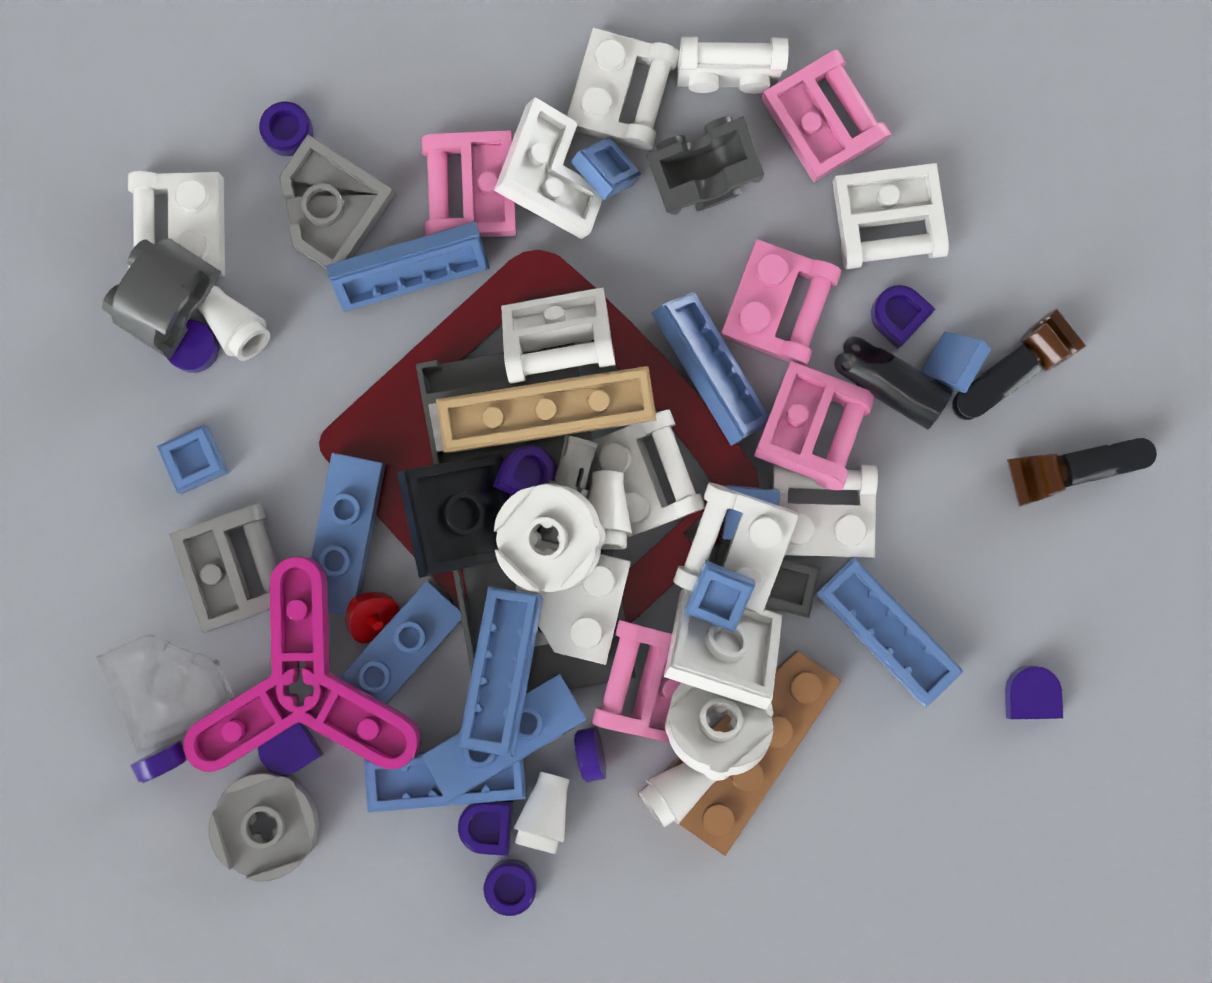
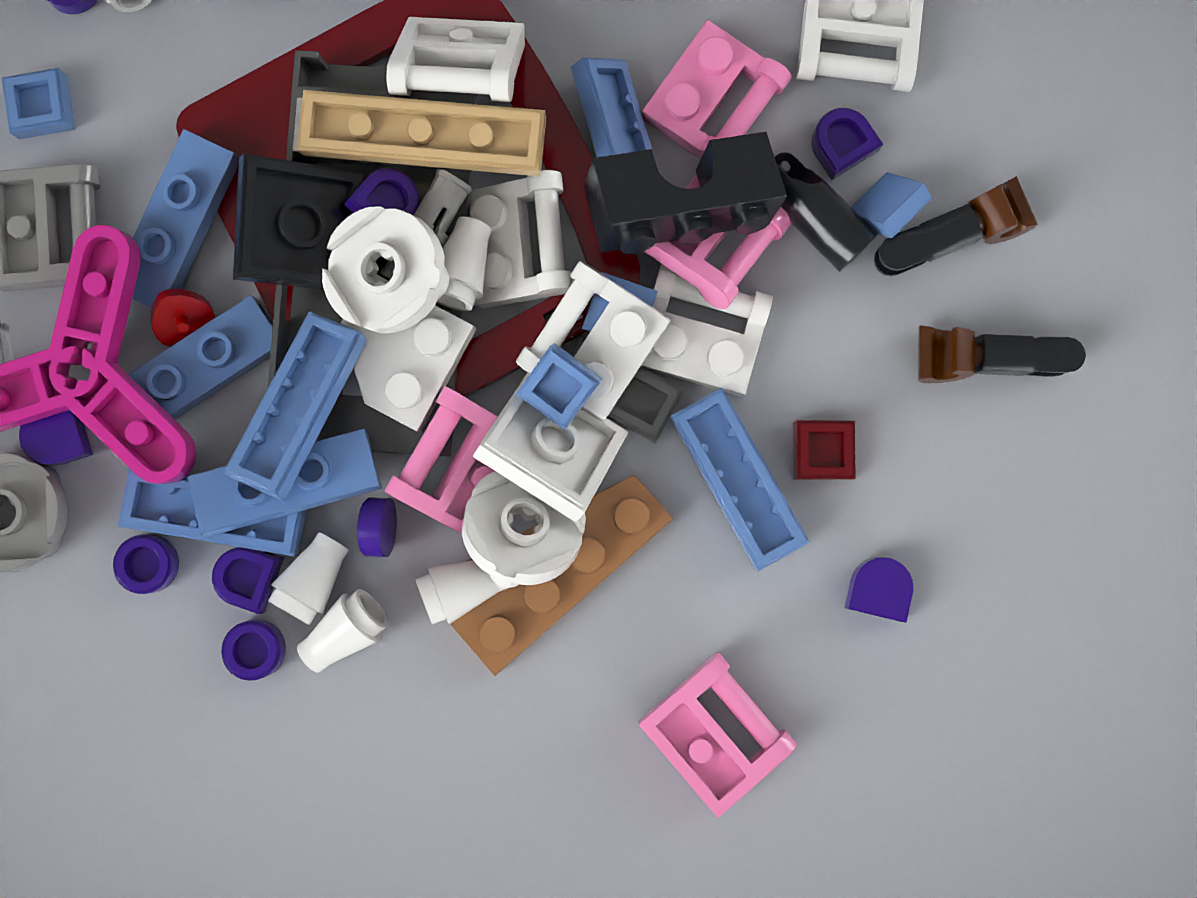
camera: 15 degrees right, 0 degrees up
(397, 837) = (145, 564): none -> dark purple tile
(587, 849) = (346, 628): none -> white cone
(746, 427) = (638, 207): none -> black arch
(917, 870) = (703, 749): none -> bright pink plate
(953, 587) = (824, 450): none -> dark red tile

